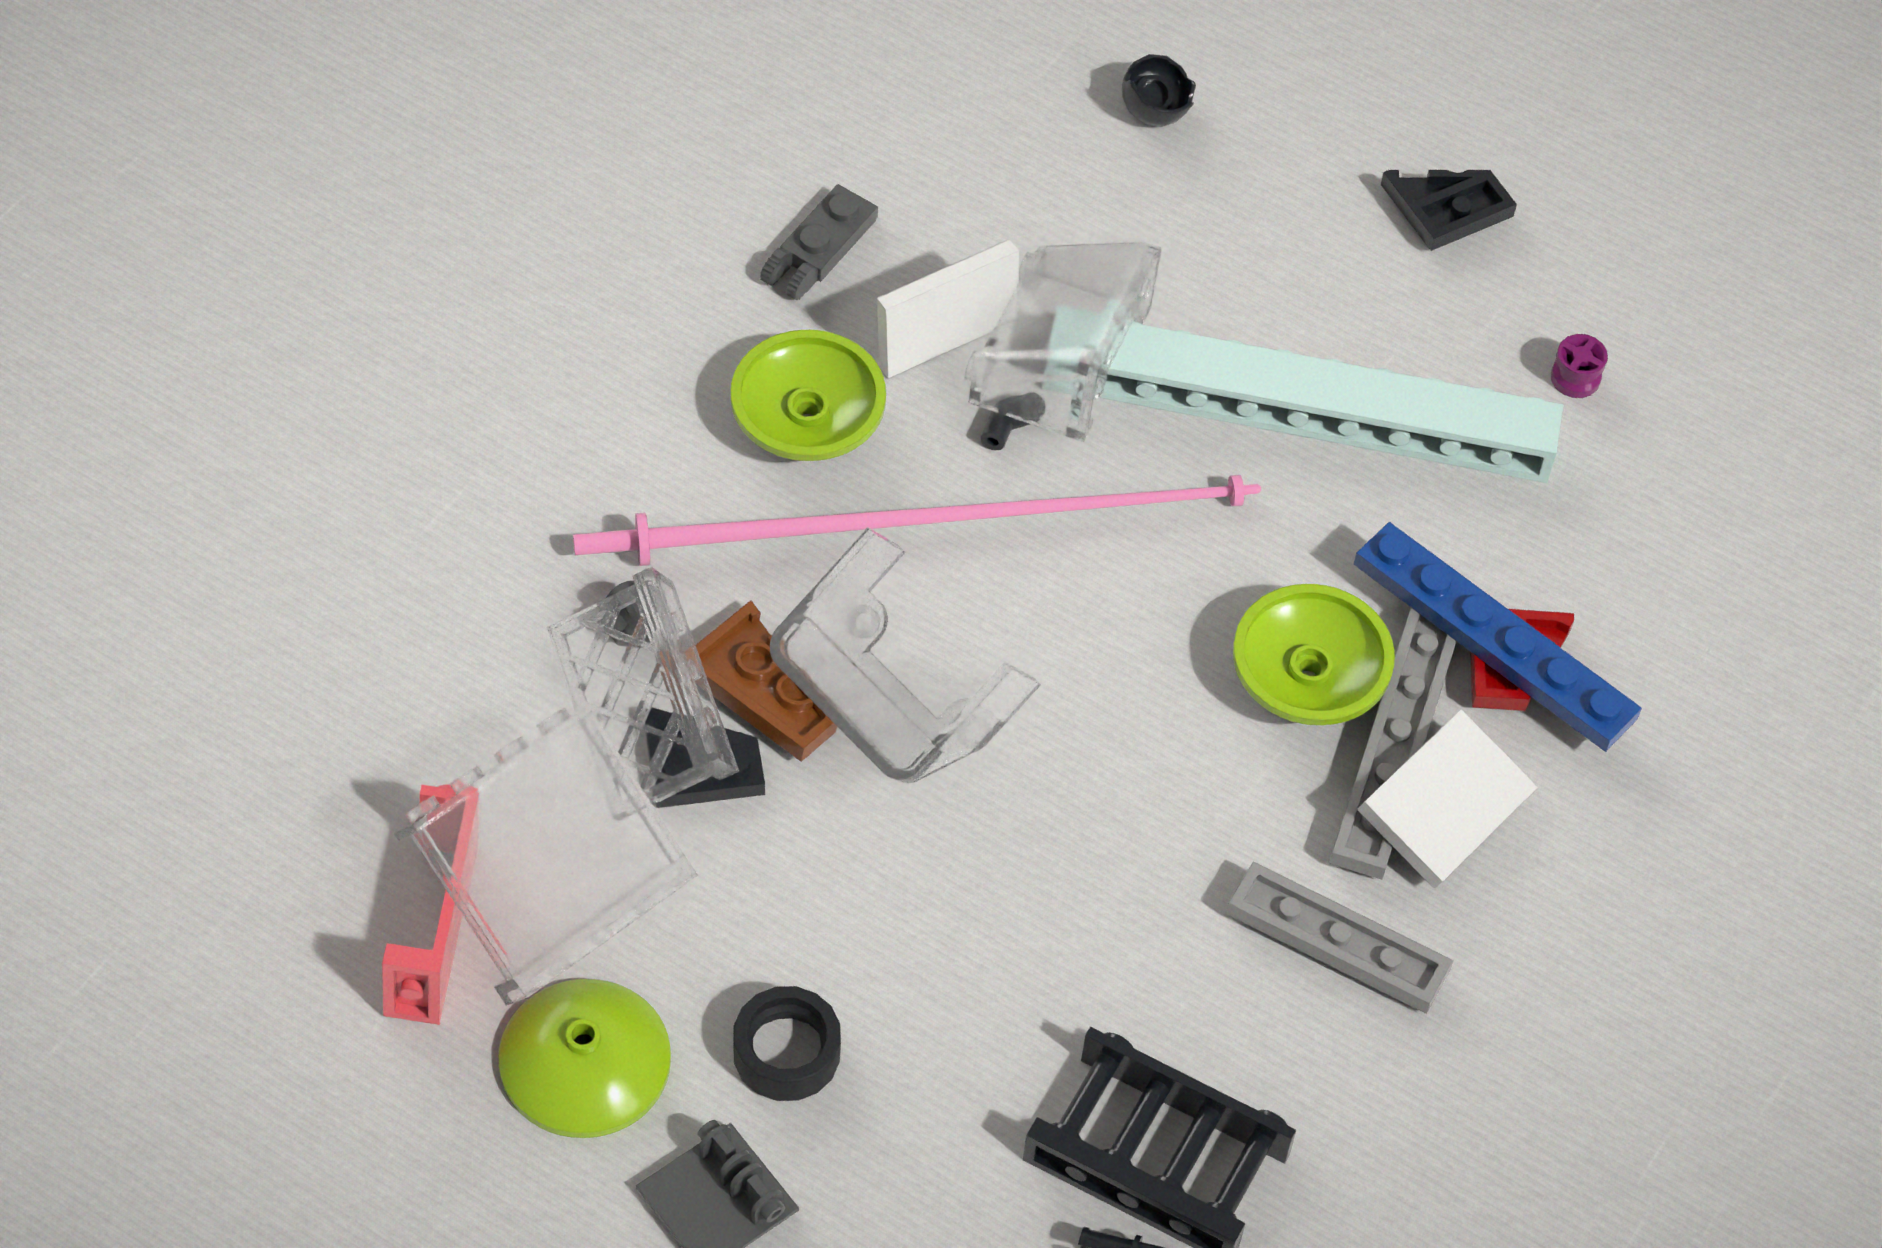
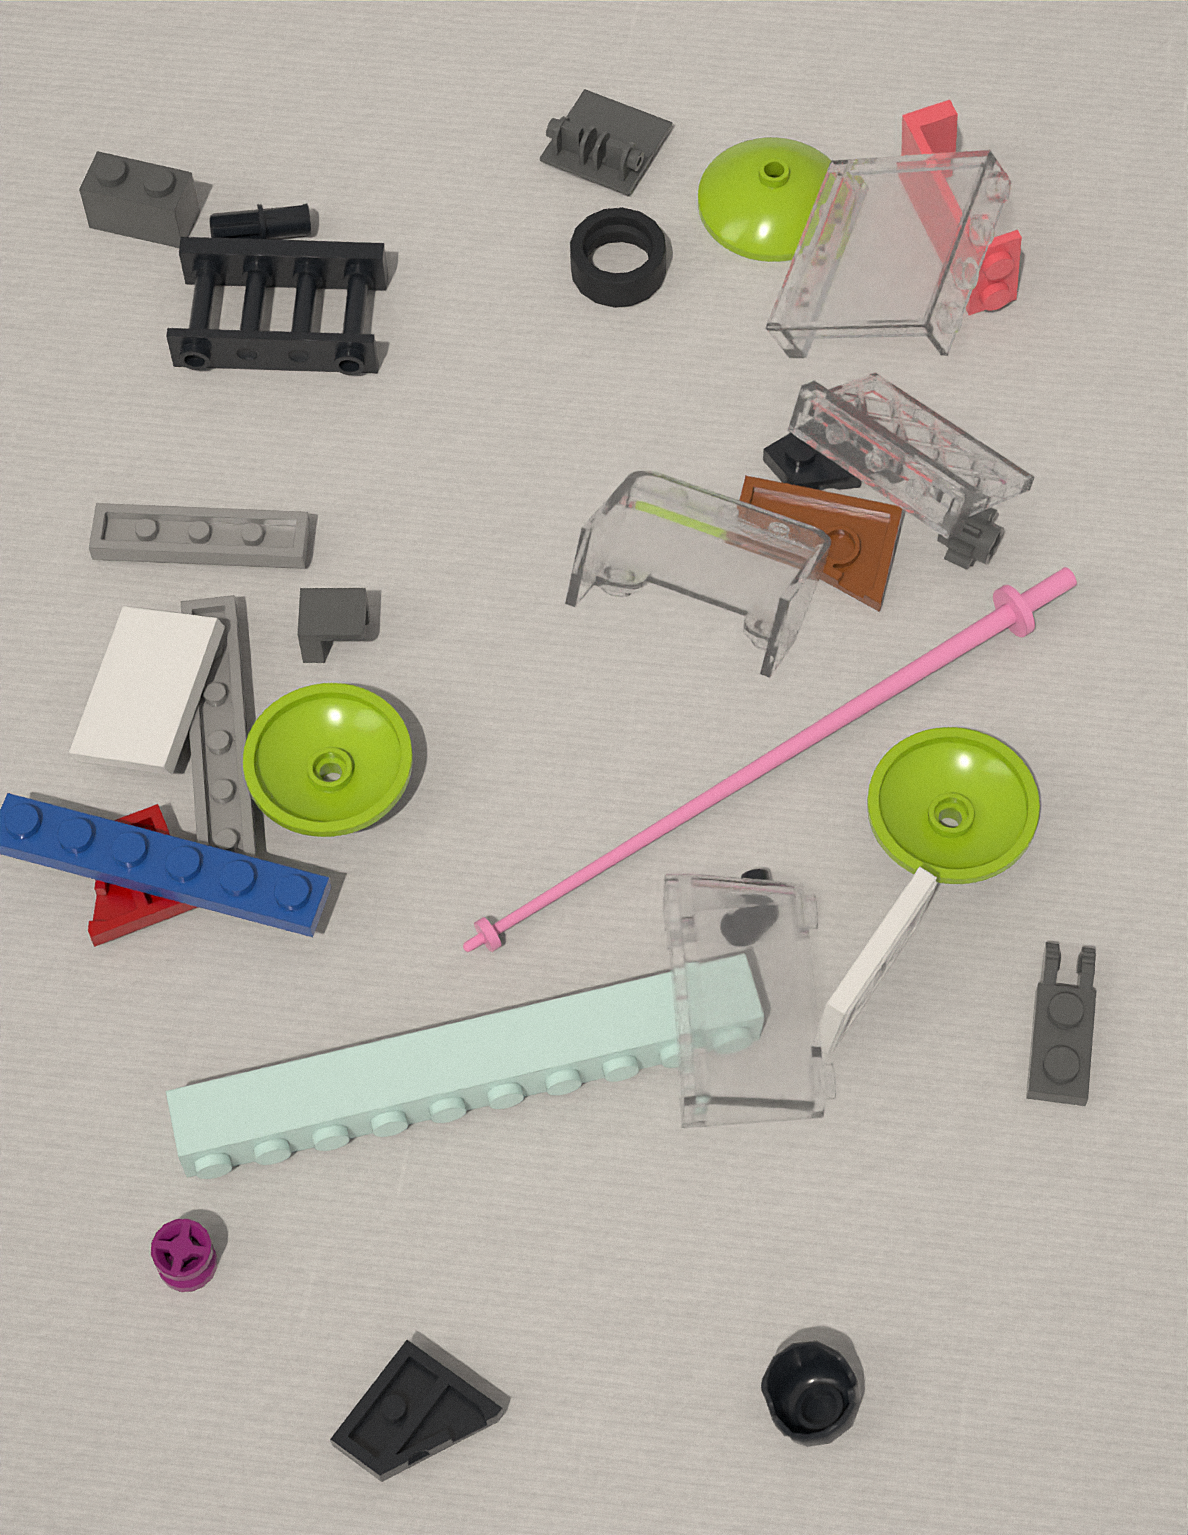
camera: 160 degrees right, 5 degrees up
(1250, 789) = (330, 616): none -> dark grey panel

